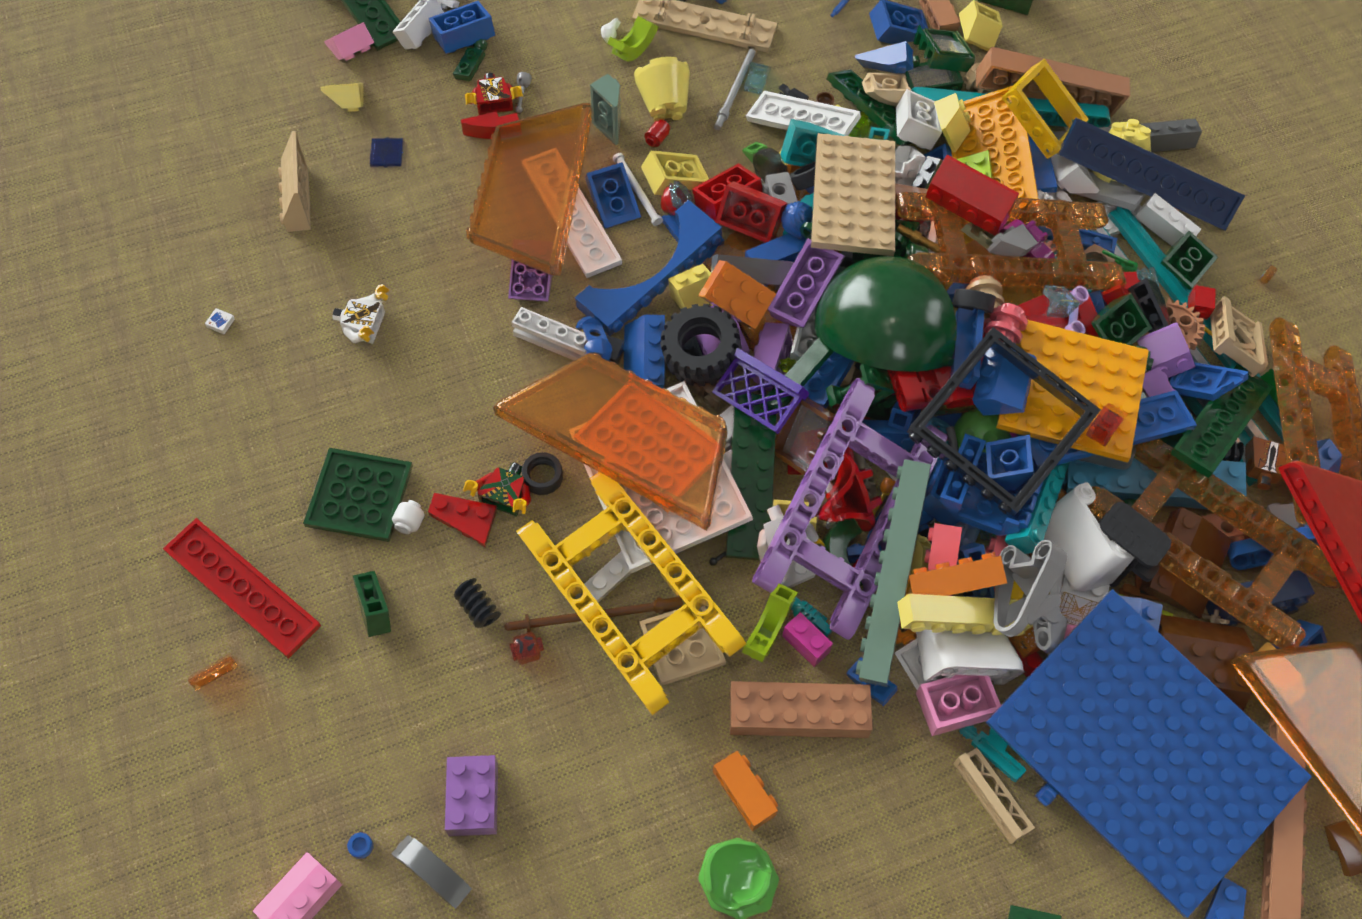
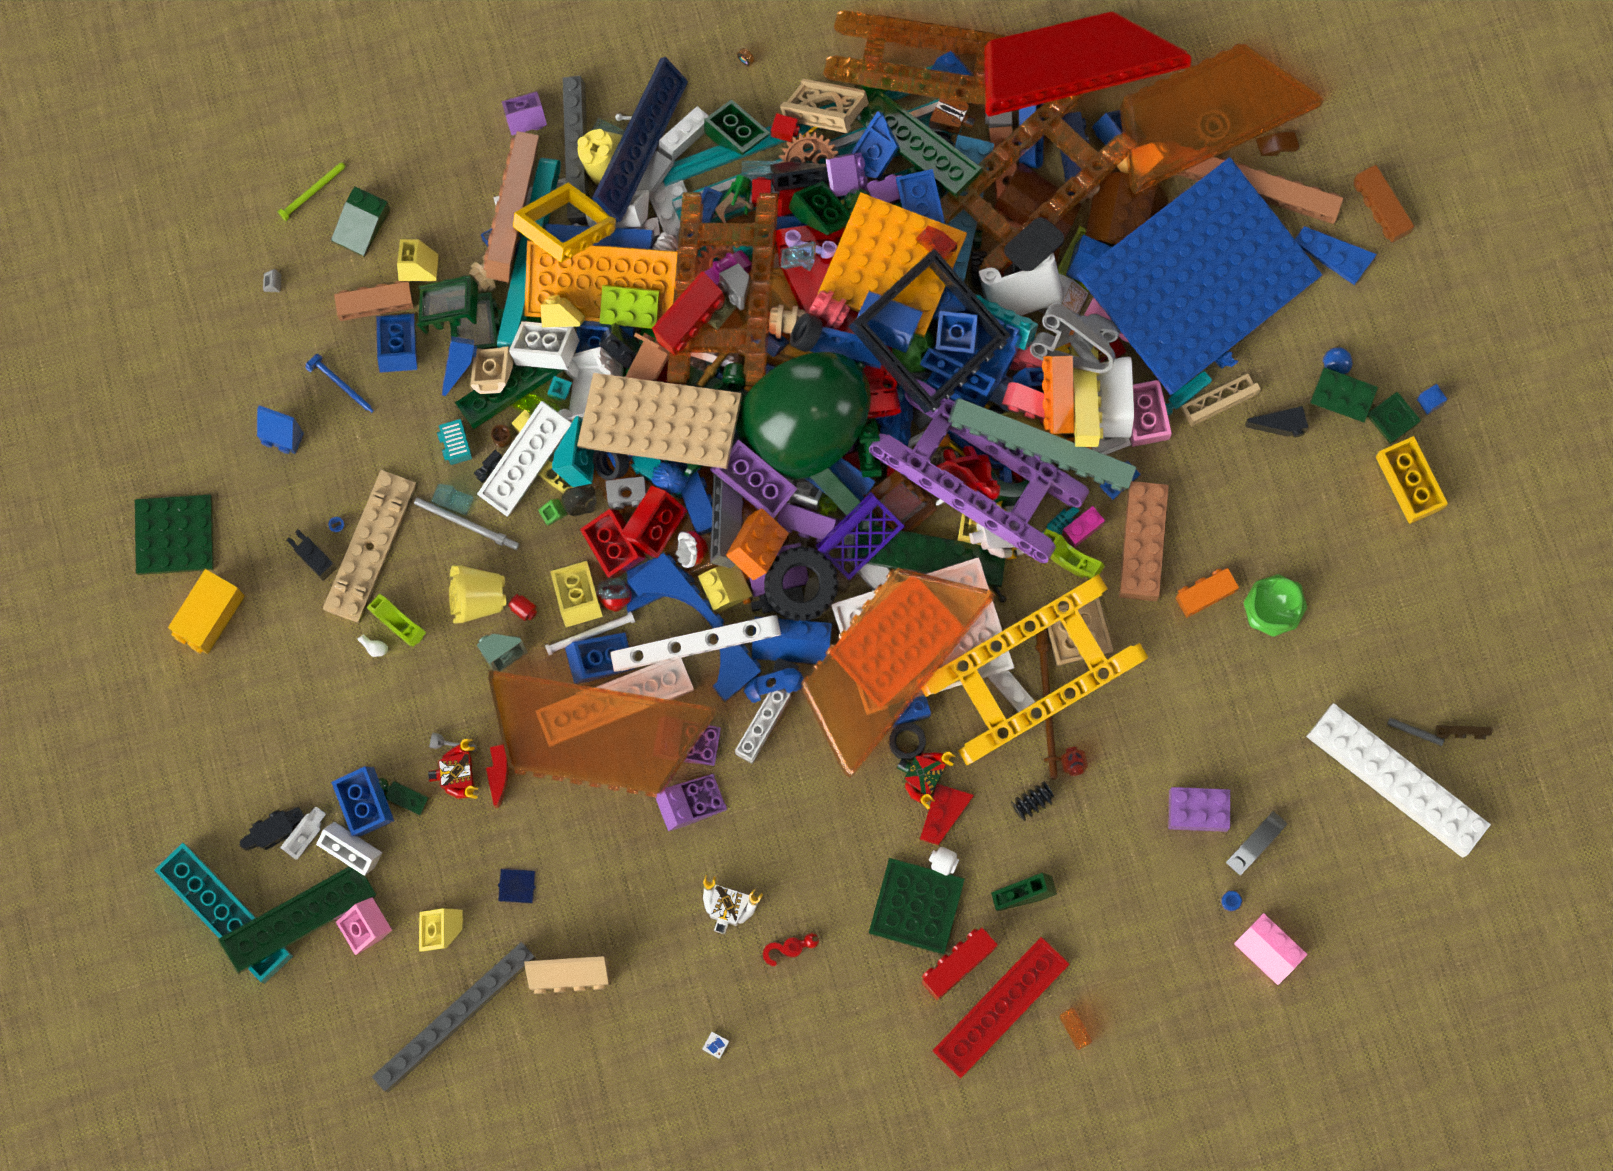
camera: 80 degrees left, 15 degrees up
(258, 108) = (453, 1018): none -> dark grey brick
(289, 534) = (959, 963): none -> red brick
(316, 378) = (791, 948): none -> red piece
(470, 280) = (690, 802): none -> medium lavender slope
(575, 474) = (916, 711): none -> blue brick
(630, 264) = (695, 643): none -> white beam
(731, 247) = (691, 548): none -> white hair
(811, 71) = (455, 442): none -> teal brick
(979, 877) = (1285, 423): none -> black slope
(1149, 99) = (524, 113): none -> medium lavender slope

